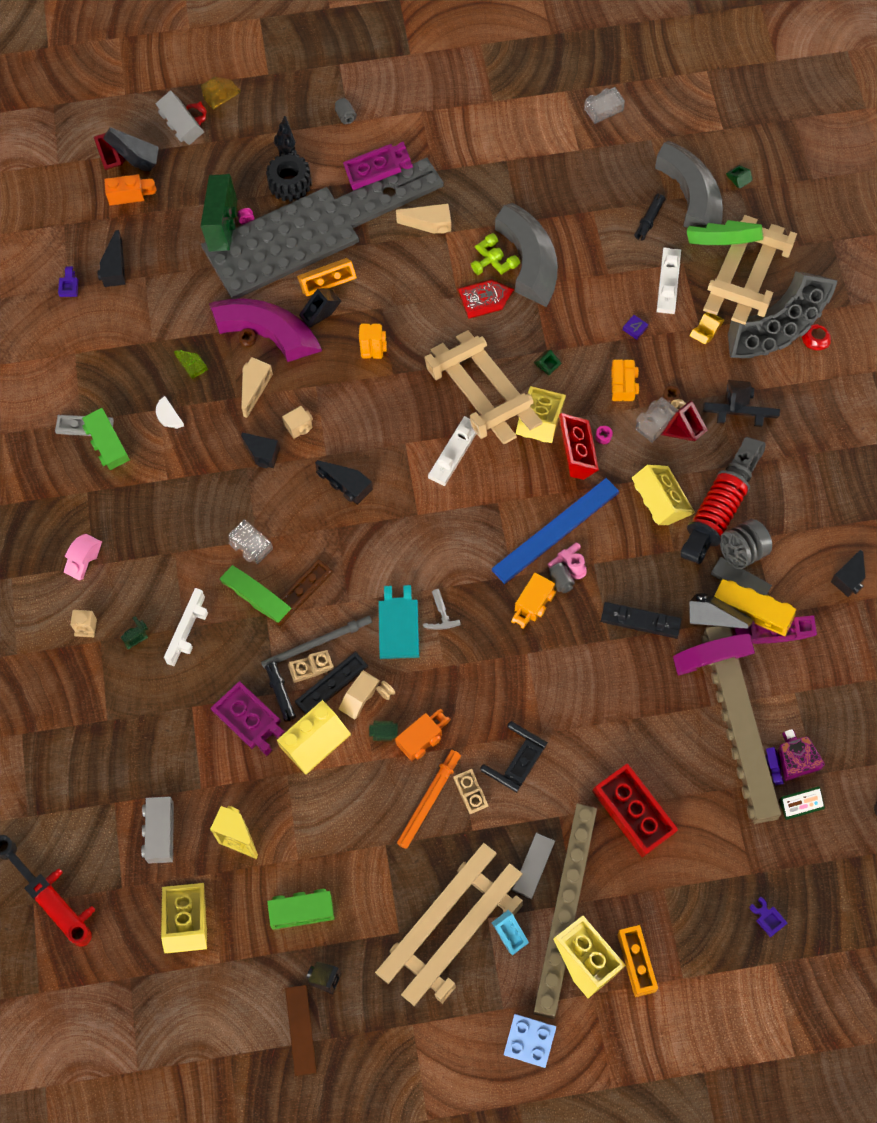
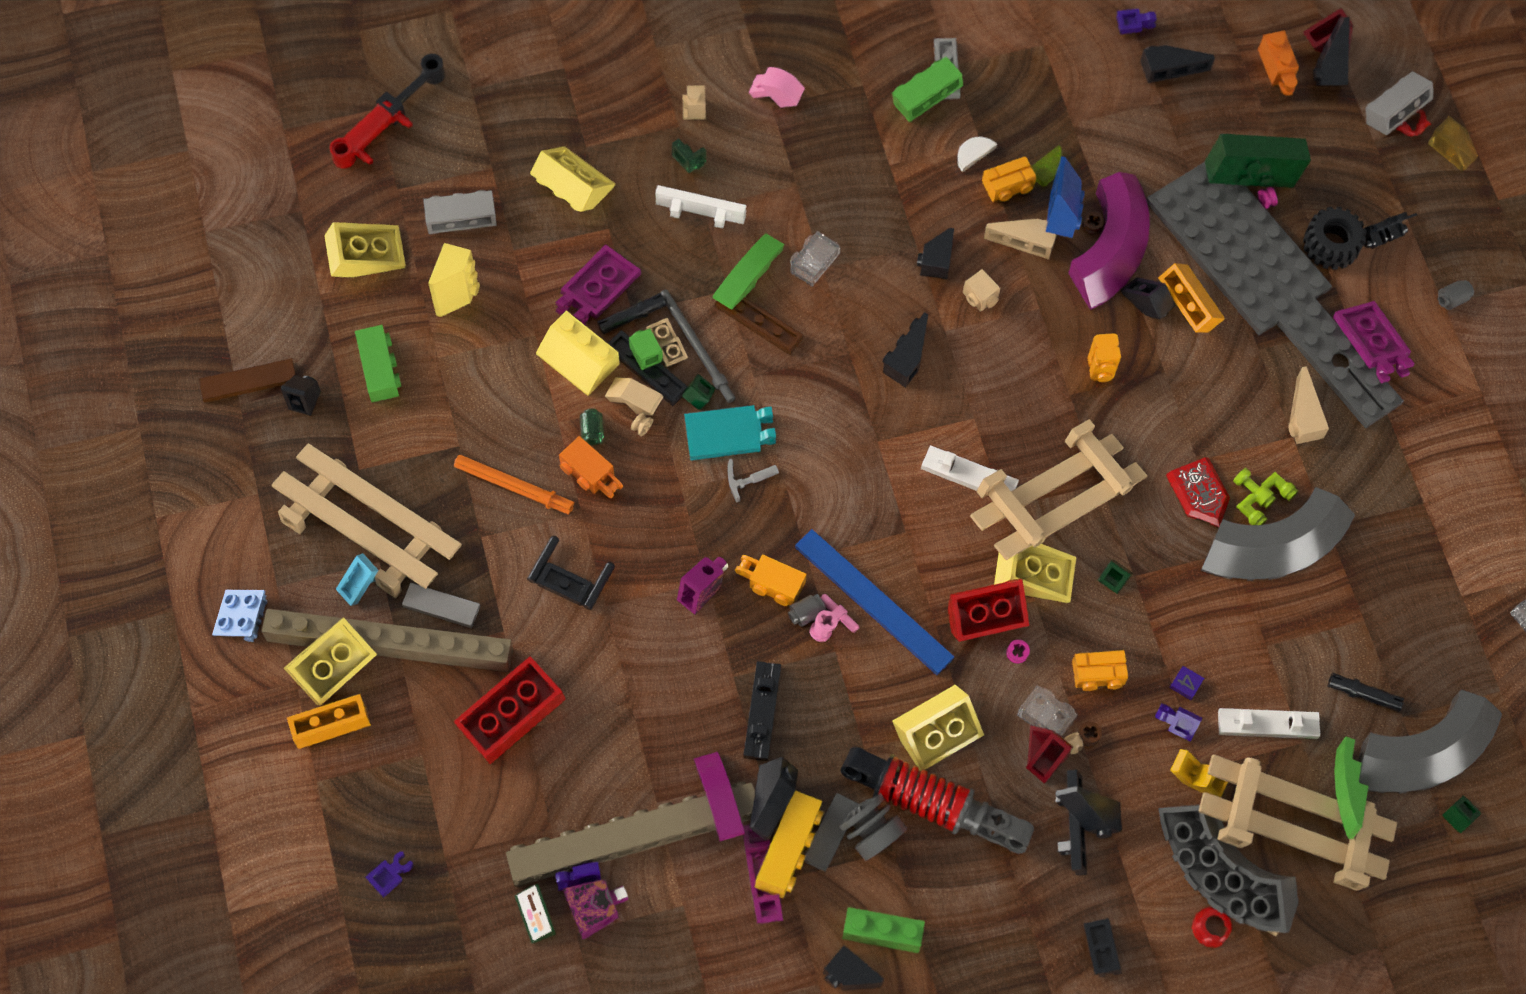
camera: 80 degrees right, 0 degrees up
(141, 731) = (571, 178): none -> light yellow slope
(199, 390) = (1009, 179): none -> light orange brick
(233, 350) = (1065, 201): none -> blue slope
(319, 679) = (645, 348): none -> bright green brick
(360, 643) = (699, 392): none -> dark green slope
(470, 791) = (526, 530): tan slope -> none
(535, 652) = (701, 583): none -> magenta torso
(667, 332) = (1182, 723): none -> plate
(820, 548) = (883, 930): none -> bright green brick
(835, 404) = (1102, 947): none -> black hinge

